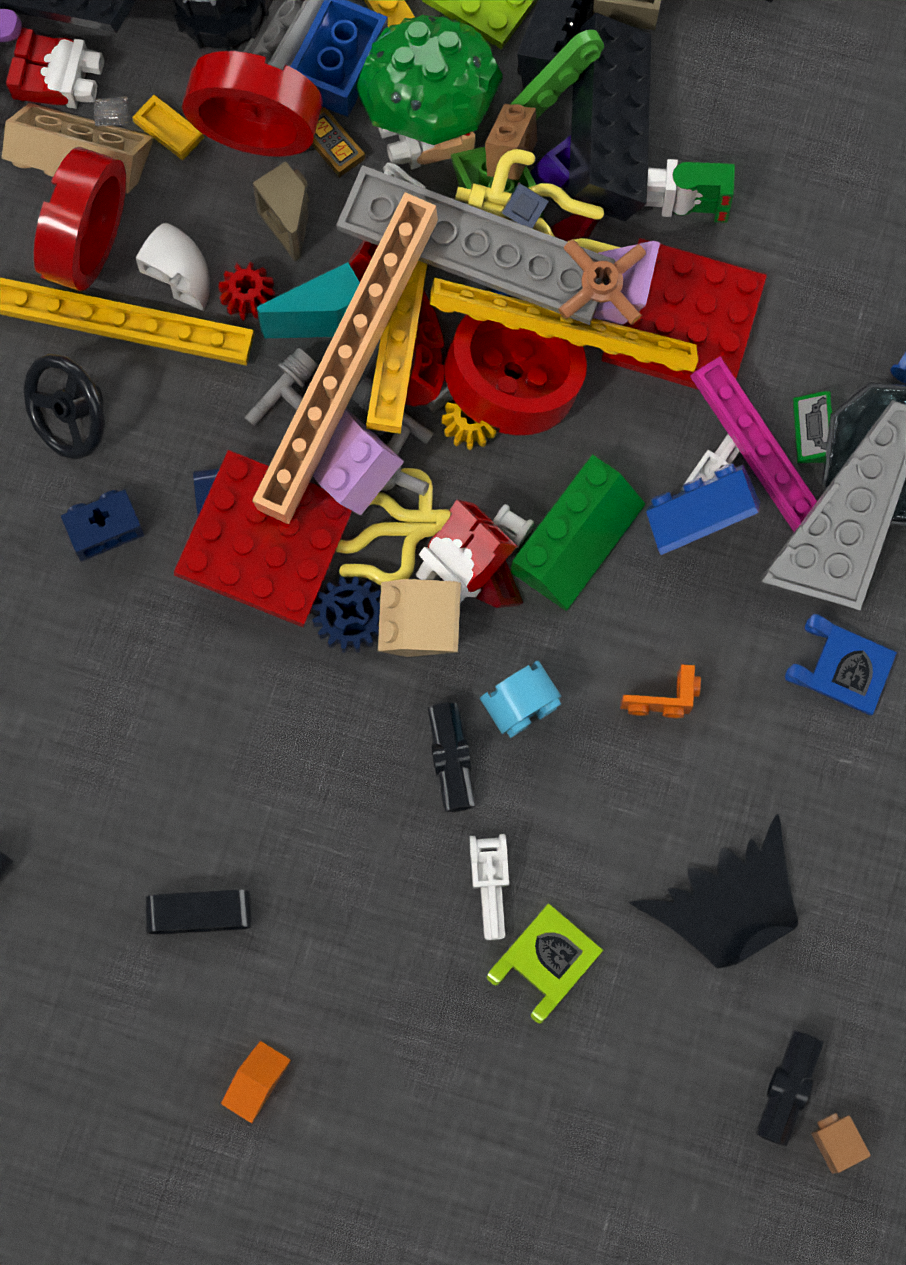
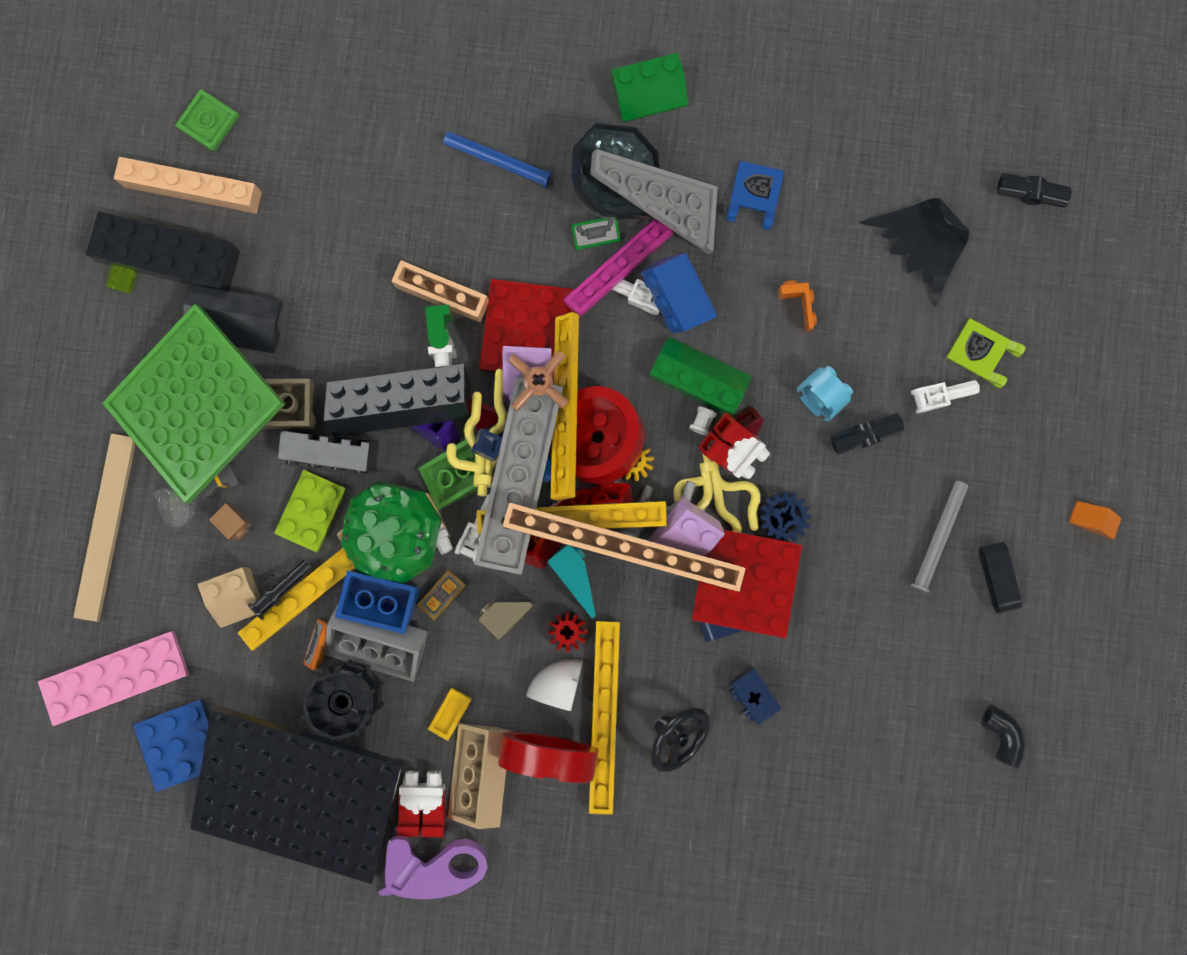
camera: 95 degrees left, 10 degrees up
(111, 111) = (446, 756): clear tile -> none
(252, 104) = (438, 652): red brick -> none
(277, 837) = (940, 537): none -> light grey axle
(296, 369) = (620, 586): light grey piece -> none
(419, 617) = (784, 469): tan slope -> none
(512, 130) = (426, 467): medium nougat brick -> none
(561, 72) = (376, 440): bright green plate -> none
(757, 200) = (440, 291): none -> light nougat brick
(840, 1142) = (1061, 155): medium nougat brick -> none

